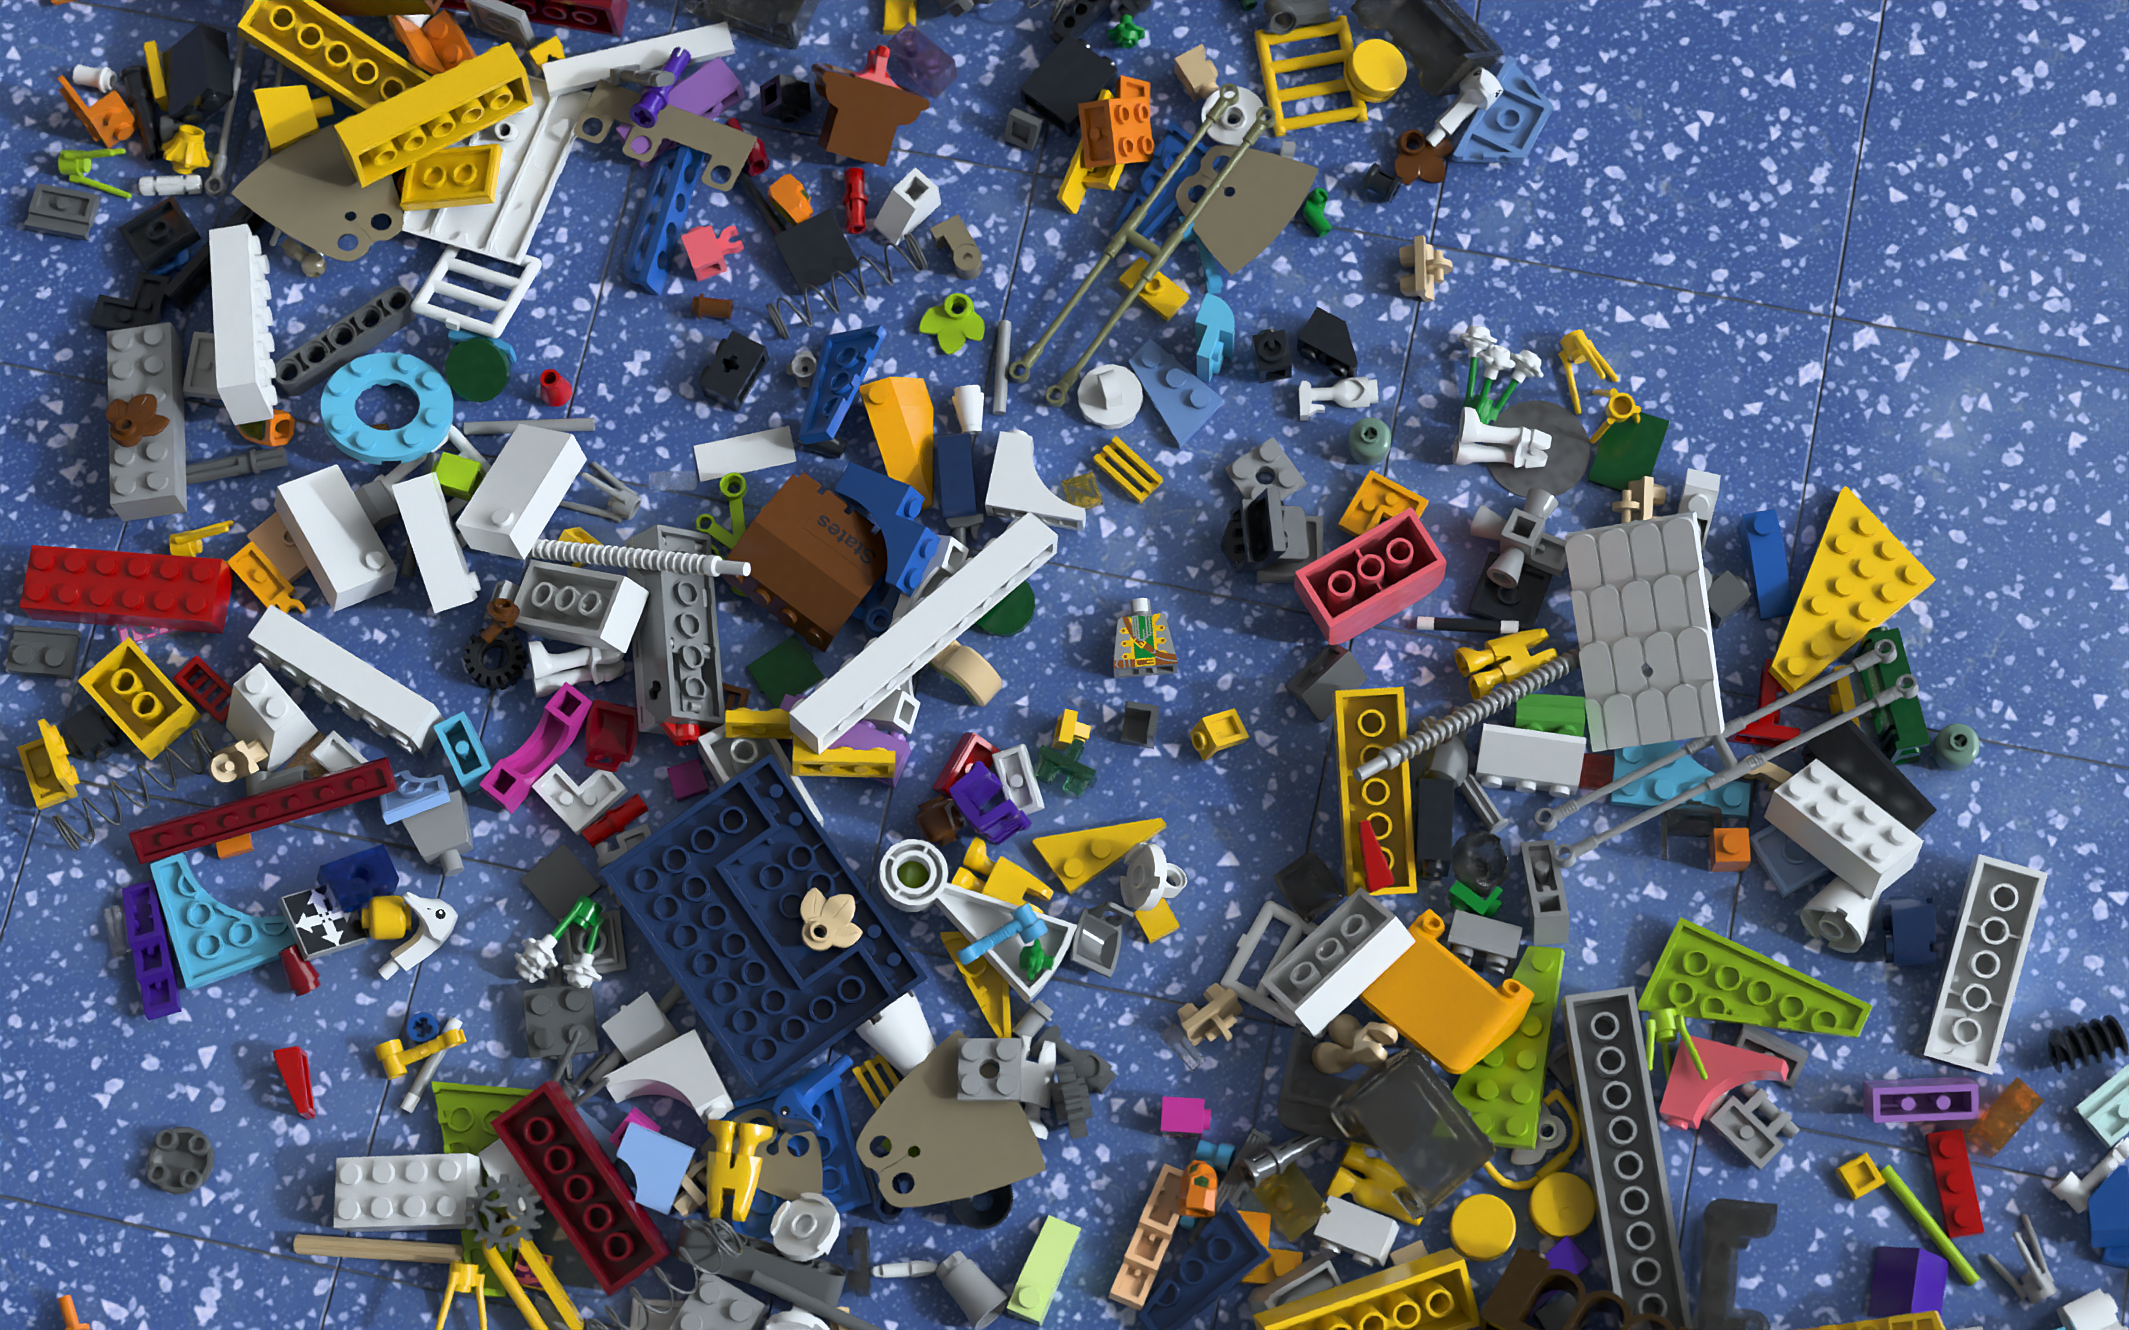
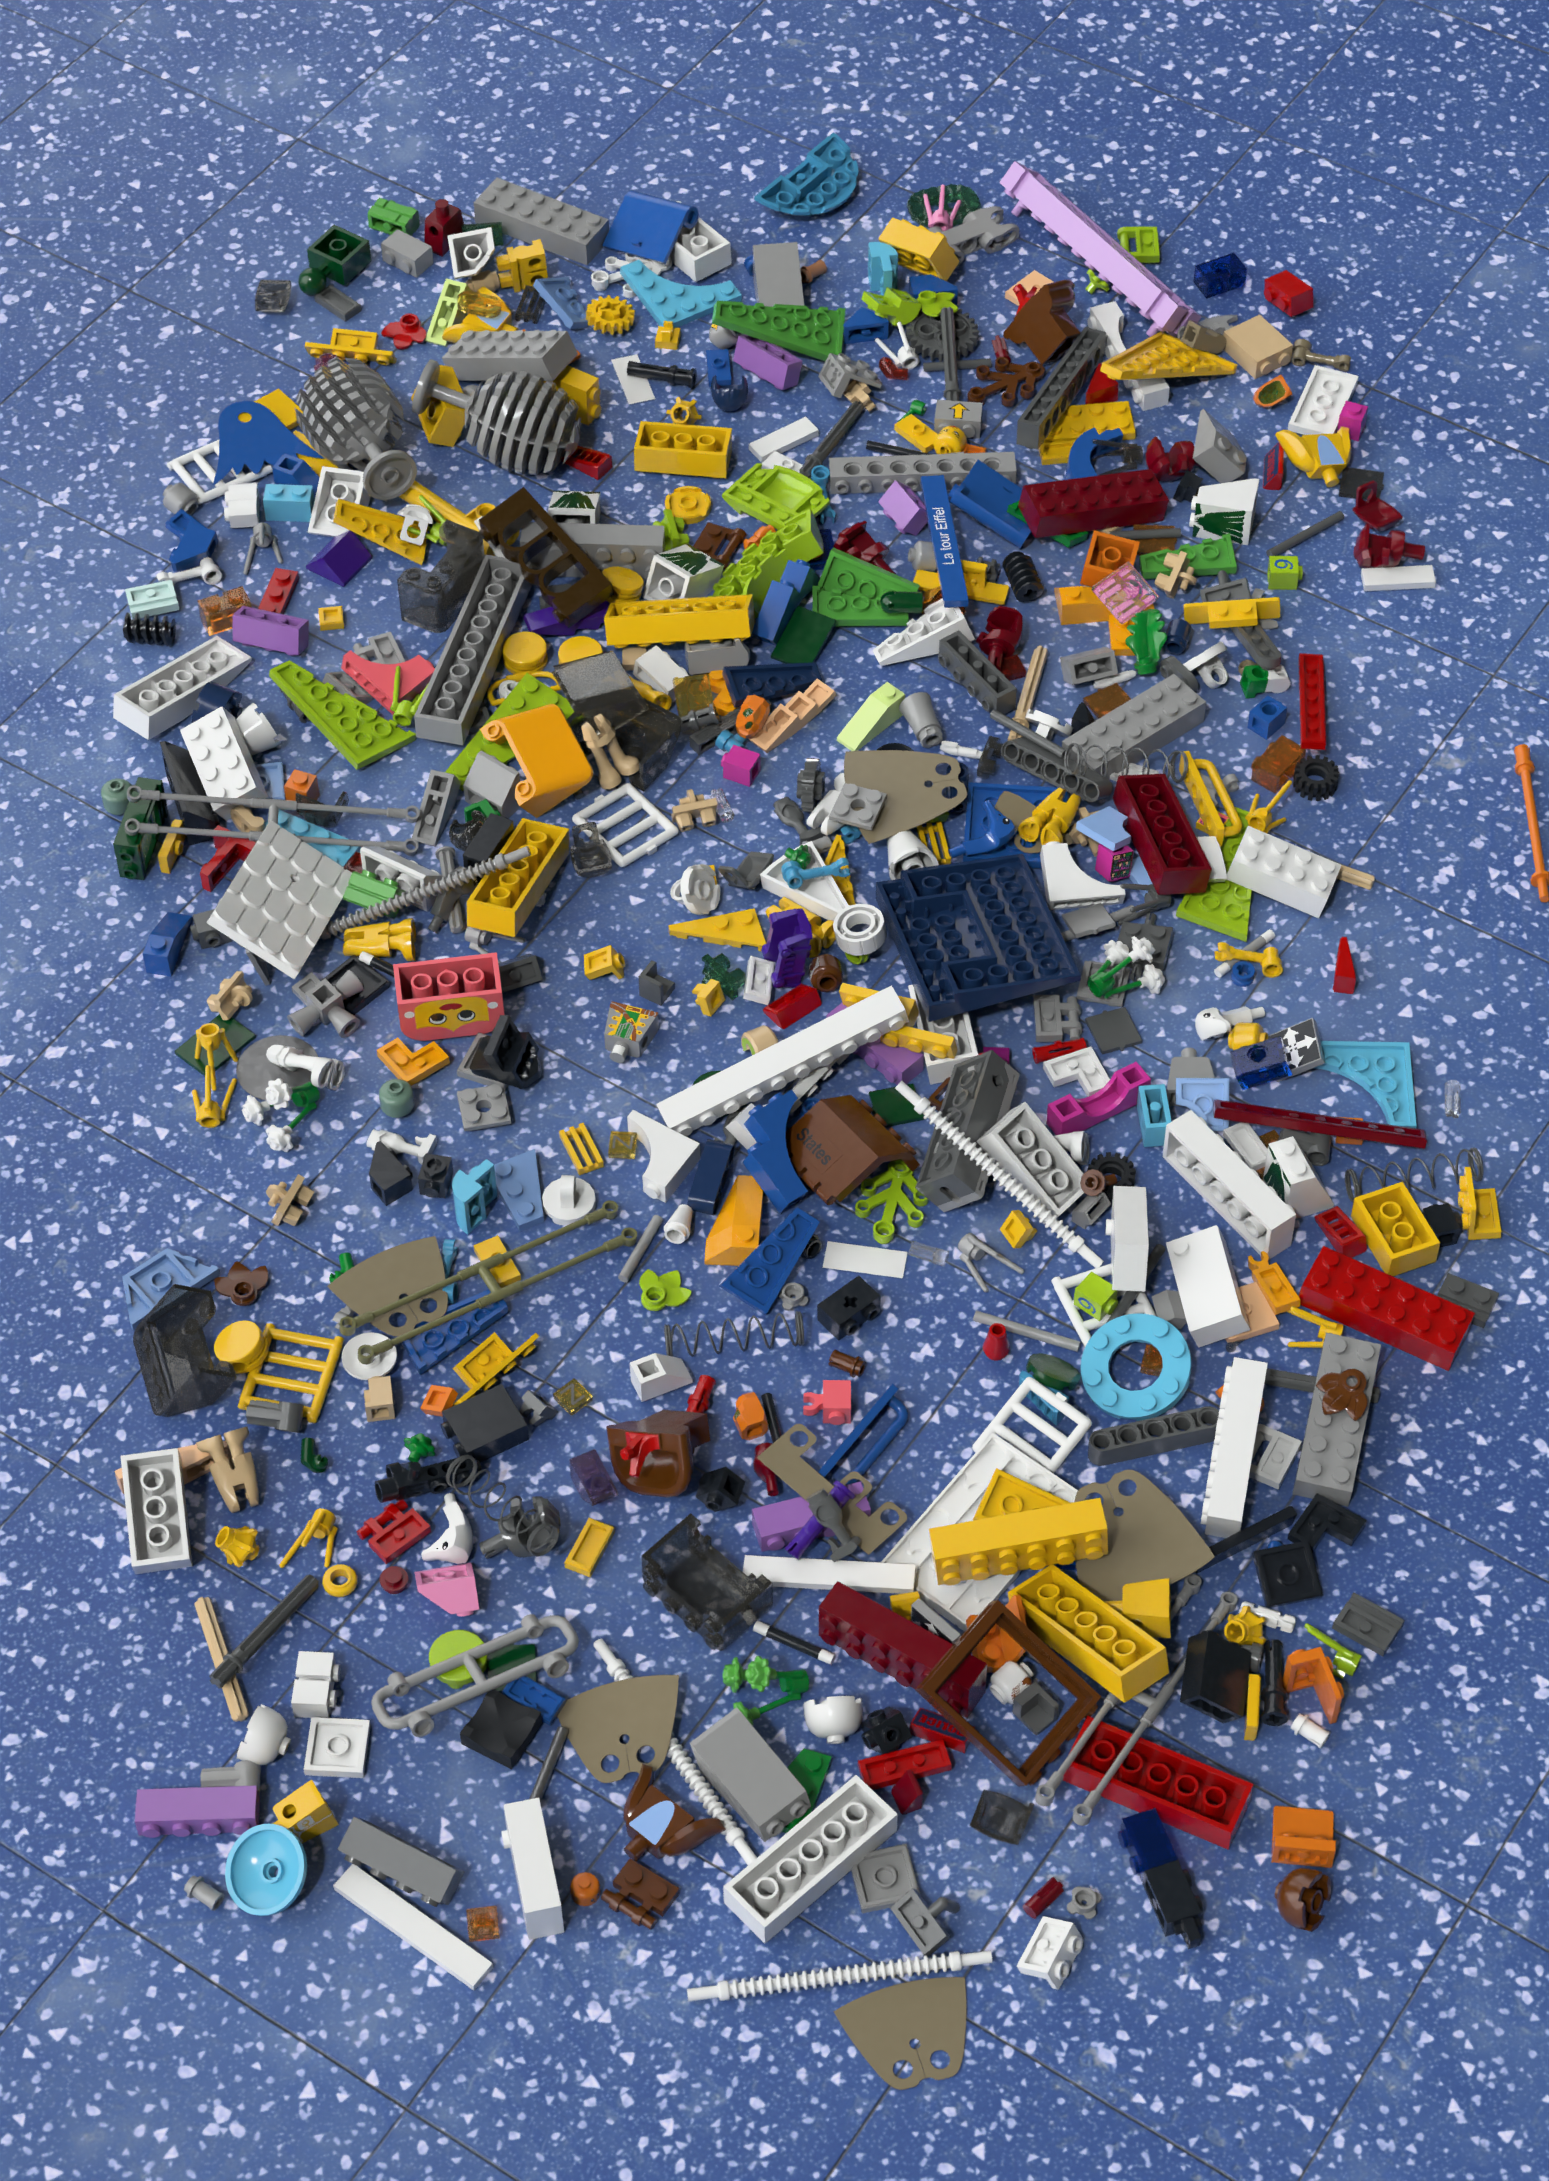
camera: 165 degrees left, 20 degrees down
(151, 950) = (1430, 1078): dark purple slope -> none
(180, 1160) = (1441, 950): dark grey dish -> none
(237, 760) = (1332, 1171): tan hips -> none
(300, 975) = (1325, 1024): dark red cone -> none
(509, 1197) = (1218, 817): dark grey gear -> none
(521, 491) = (1049, 1259): white brick -> none
(610, 735) = (1039, 1095): dark red piece -> none
(805, 1227) = (1018, 769): white tile -> none
(815, 250) = (747, 1373): black tile -> none
(832, 917) = (931, 913): tan plate -> none
(960, 245) = (630, 1337): dark tan leg -> none
(994, 161) = (572, 1396): none -> clear yellow tile
(1116, 131) = (477, 1355): orange bracket -> none
(1338, 961) = (596, 790): white brick -> none
(1375, 867) = (544, 825): red slope -> none
(1382, 183) = (283, 1271): black bush -> none
(1477, 91) = (172, 1276): white animal -> none
(1700, 495) = (192, 985): white slope -> none
(1852, 586) = (110, 910): yellow wing -> none
(1929, 1225) = (305, 583): lime bar -> none

